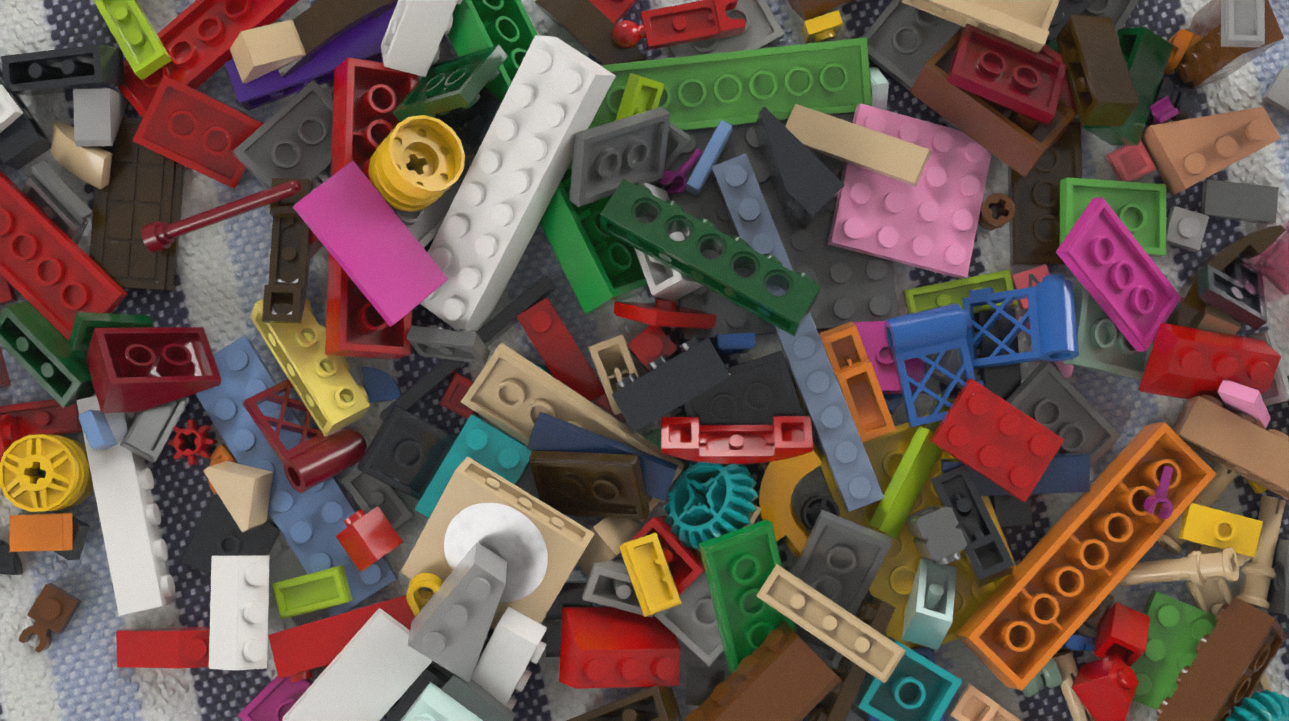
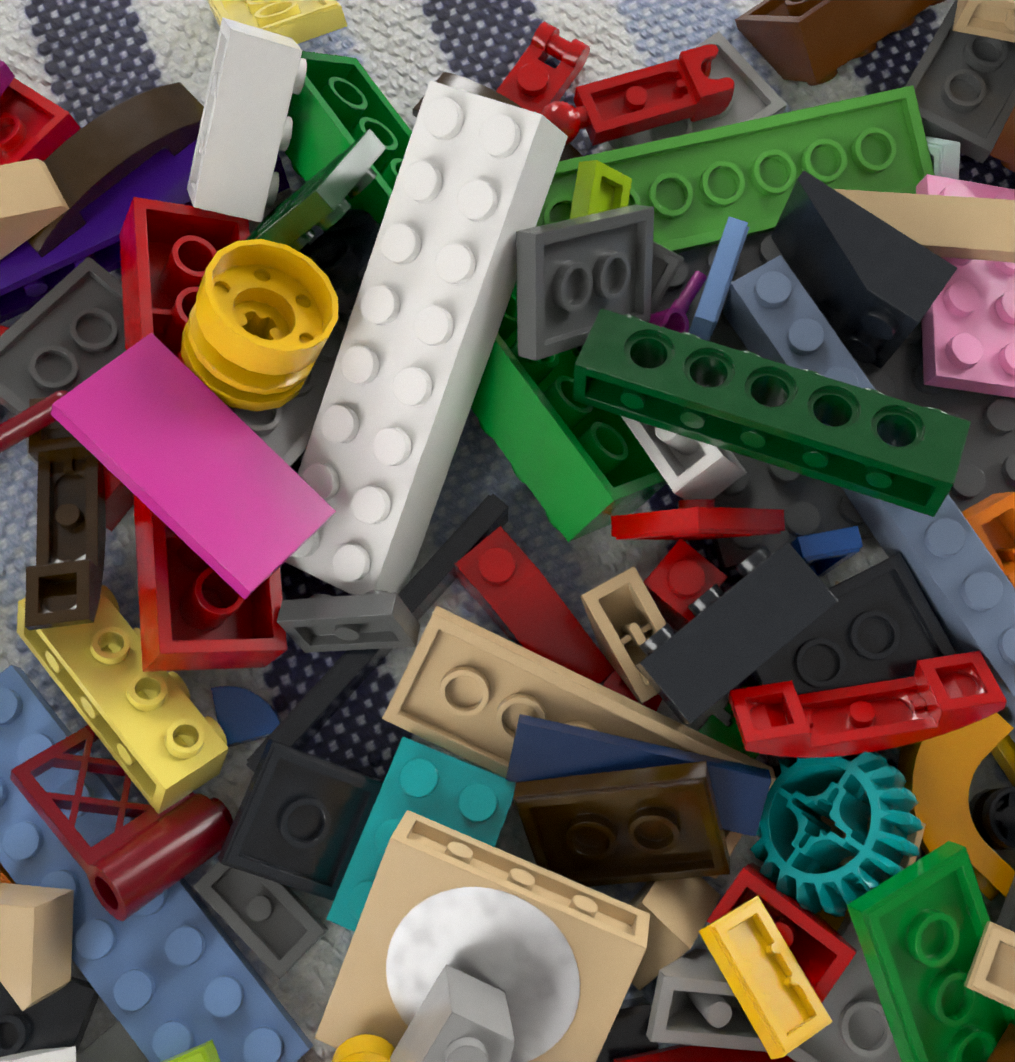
camera: 10 degrees left, 10 degrees down
(368, 537) = (250, 984): red brick -> none
(455, 393) = (368, 714): red tile -> none
(822, 28) = (840, 83): yellow plate -> none

